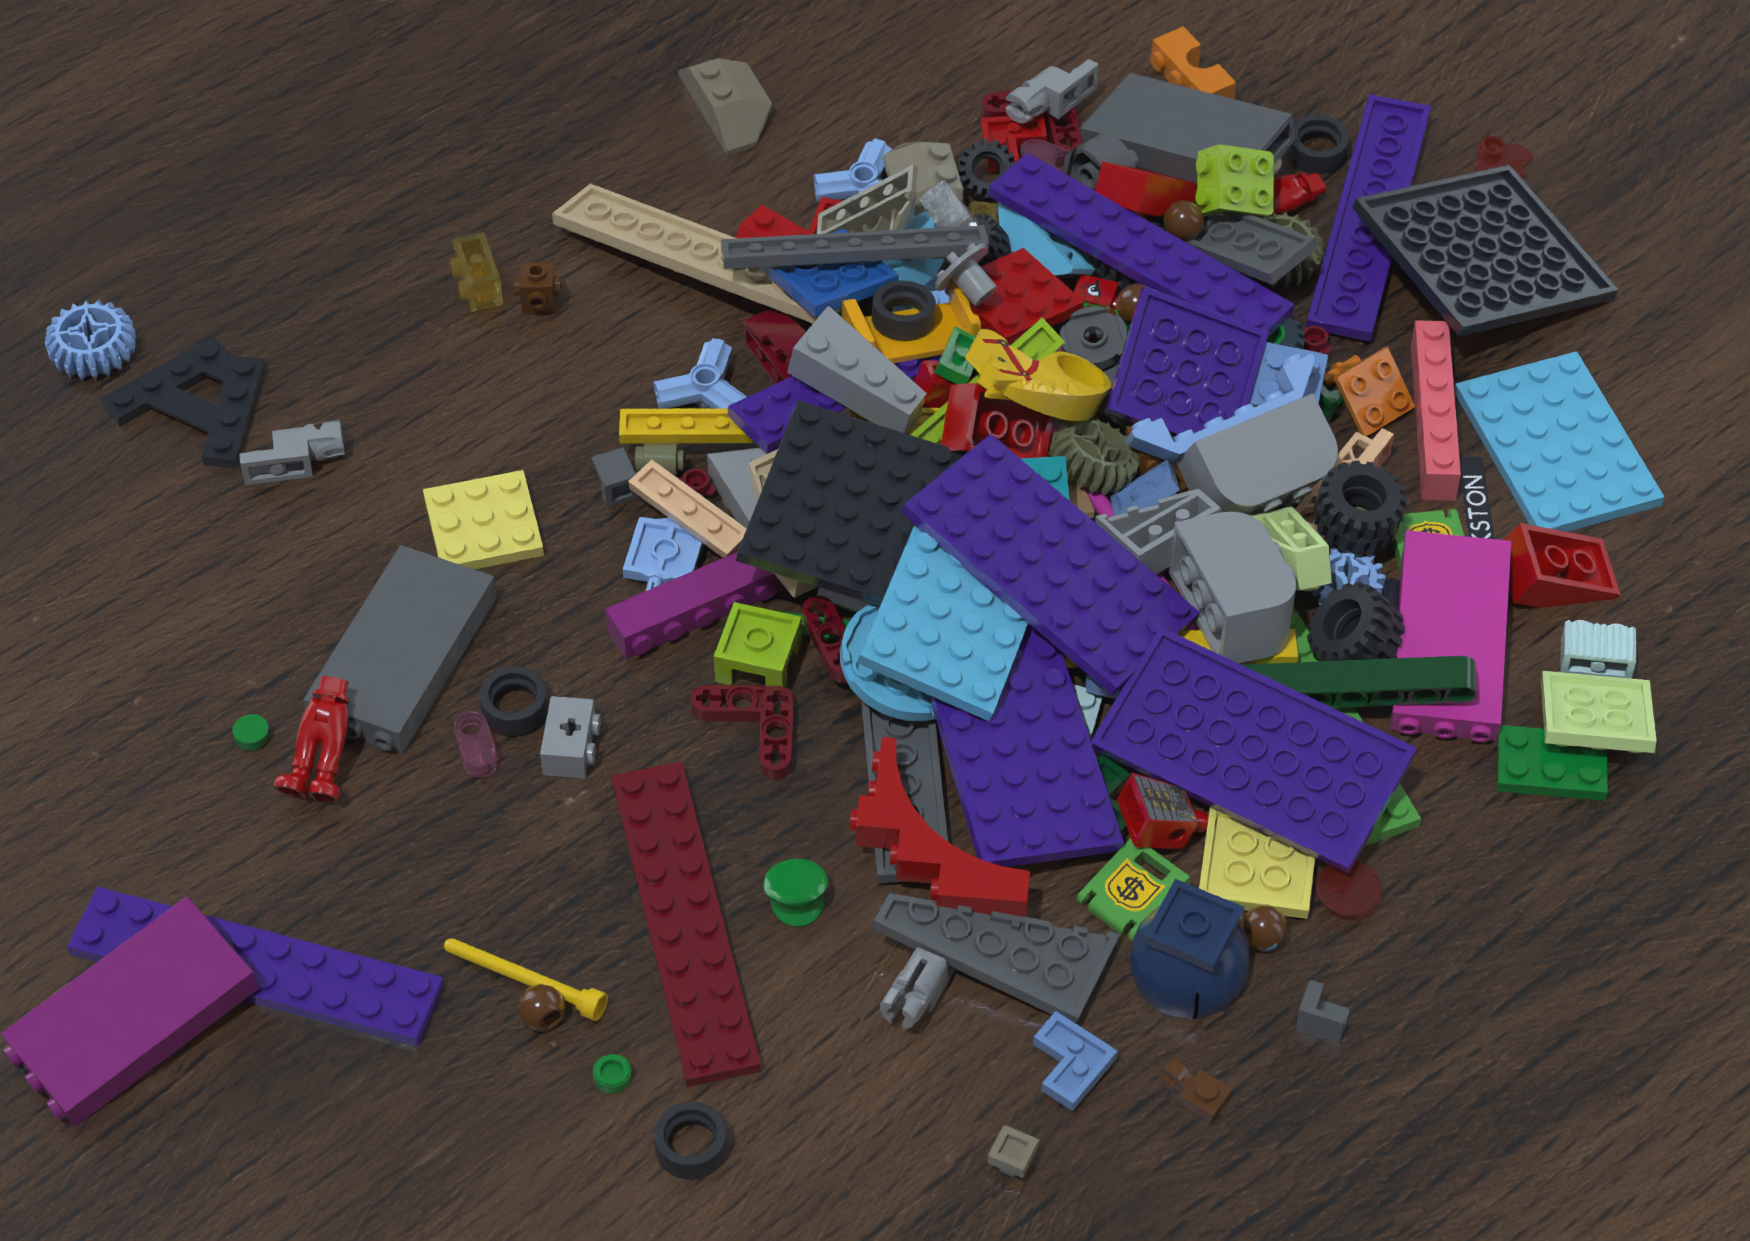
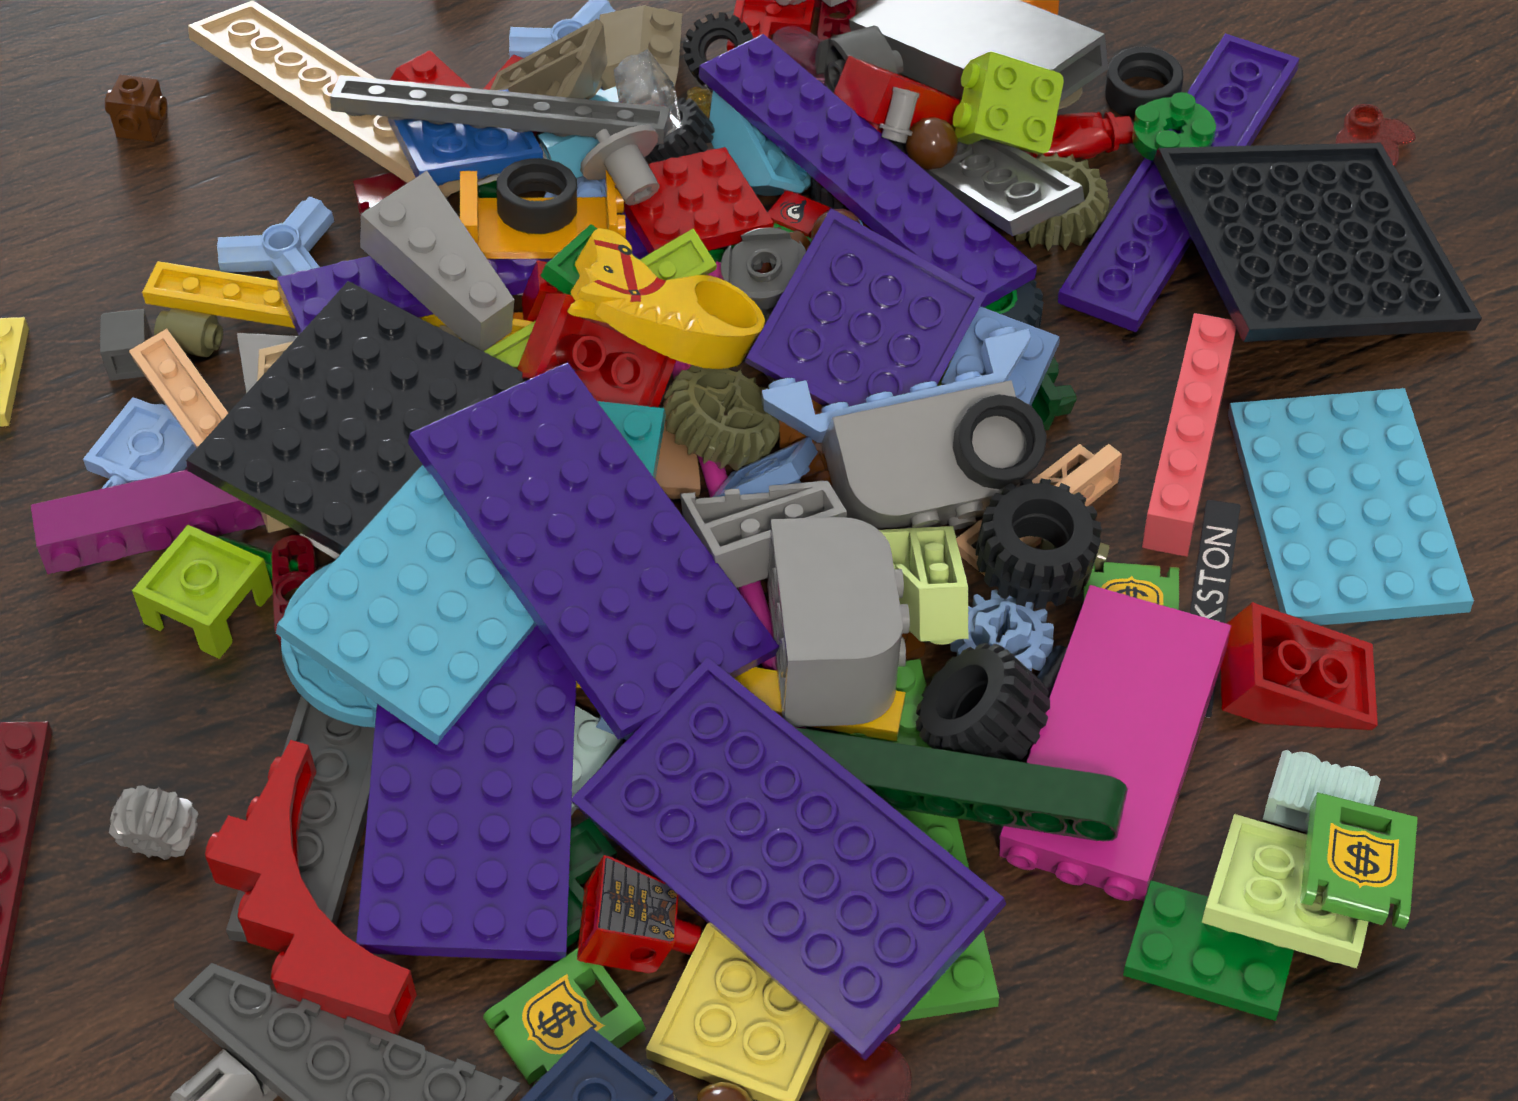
camera: 15 degrees right, 0 degrees up
(477, 272) = (72, 78): clear yellow brick -> none
(699, 478) = (223, 370): dark red plate -> none
(759, 711) = (180, 677): dark red beam -> none
(796, 890) = (115, 929): green piece -> none
(797, 813) = (153, 822): none -> light grey gear
(1159, 203) = (900, 115): none -> light grey pin
(1316, 340) = (1062, 319): dark red plate -> none
(1334, 422) = (1019, 413): none -> black tyre
(1354, 166) = (1175, 112): none -> green plate
(1371, 390) = (1114, 394): orange plate -> none
(1640, 681) = (1357, 865): none -> bright green container

